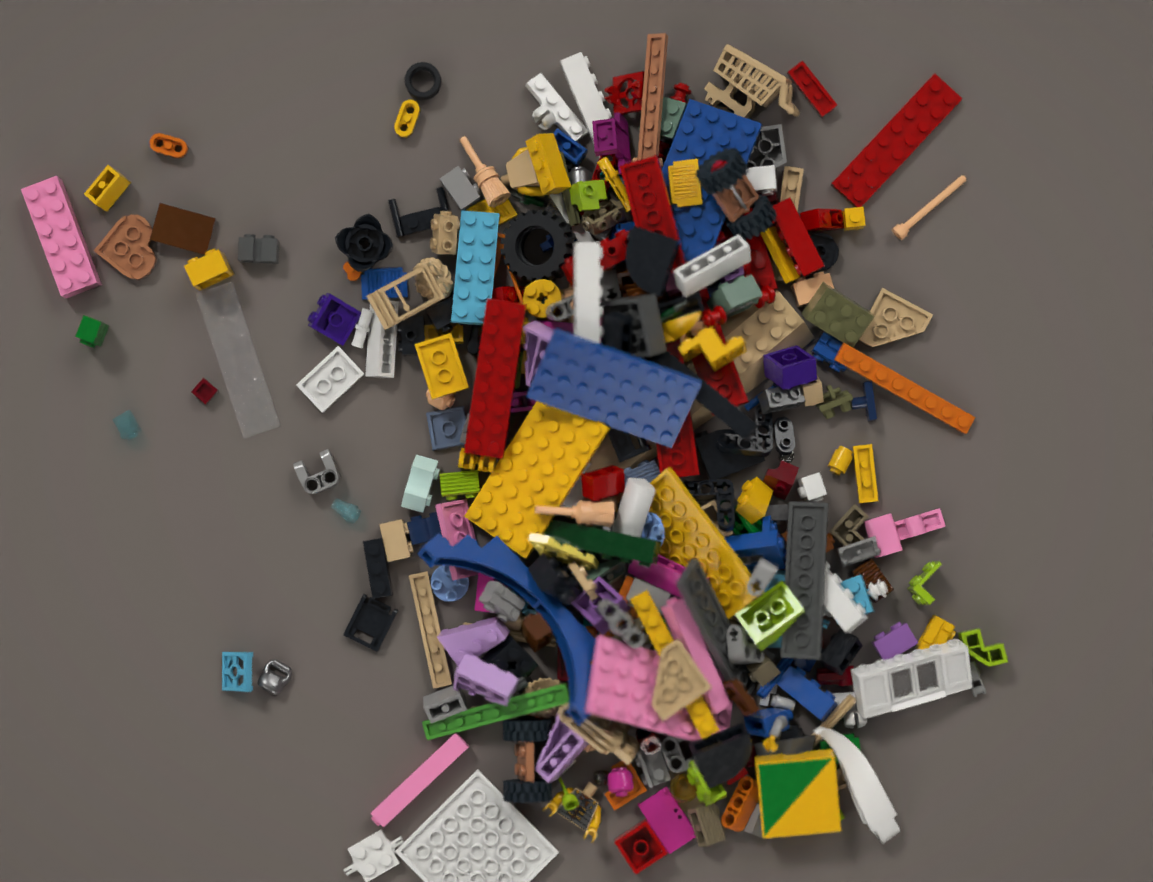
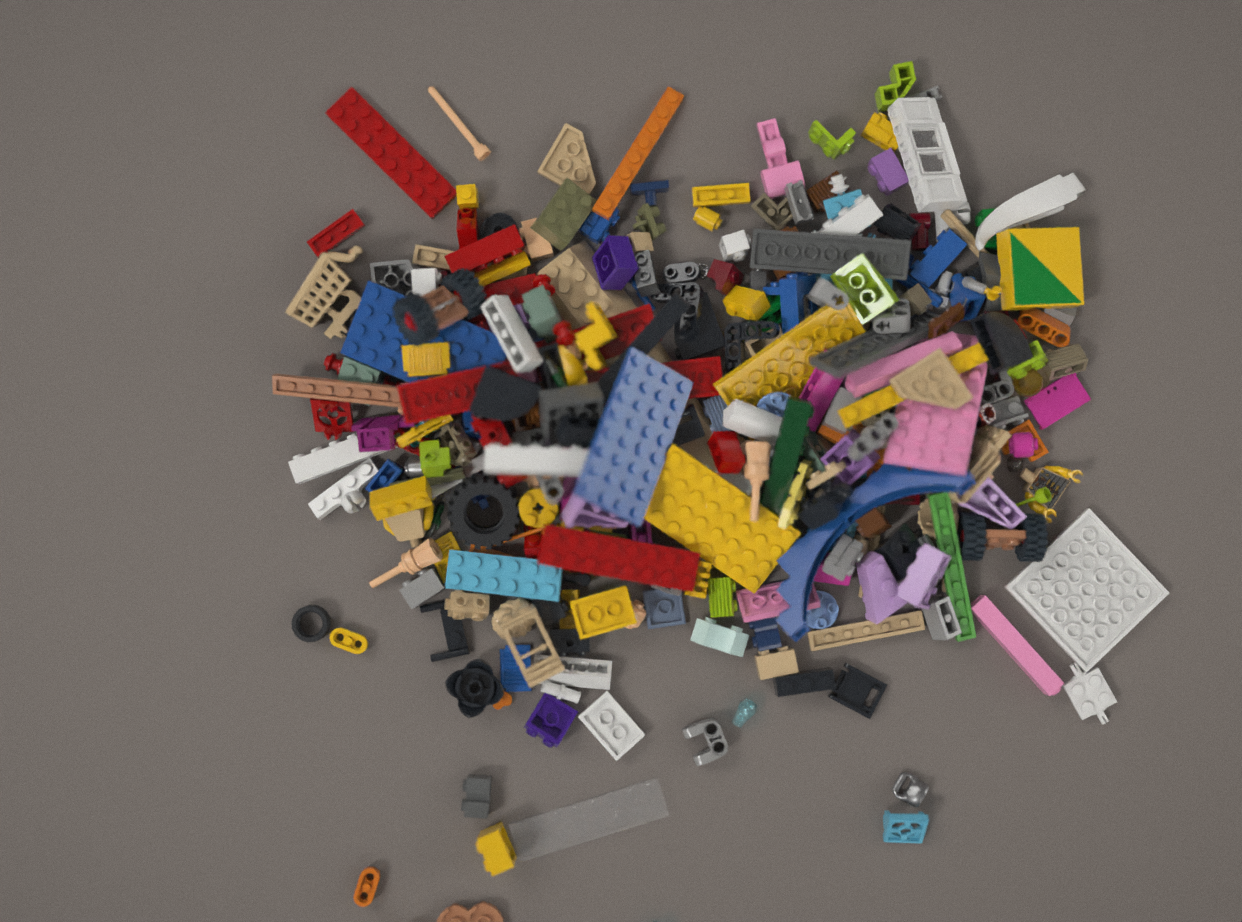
camera: 90 degrees left, 0 degrees up
(182, 229) = (453, 874): reddish brown tile -> none
(204, 391) = (619, 854): dark red plate -> none
(640, 846) = (1085, 427): red brick -> none

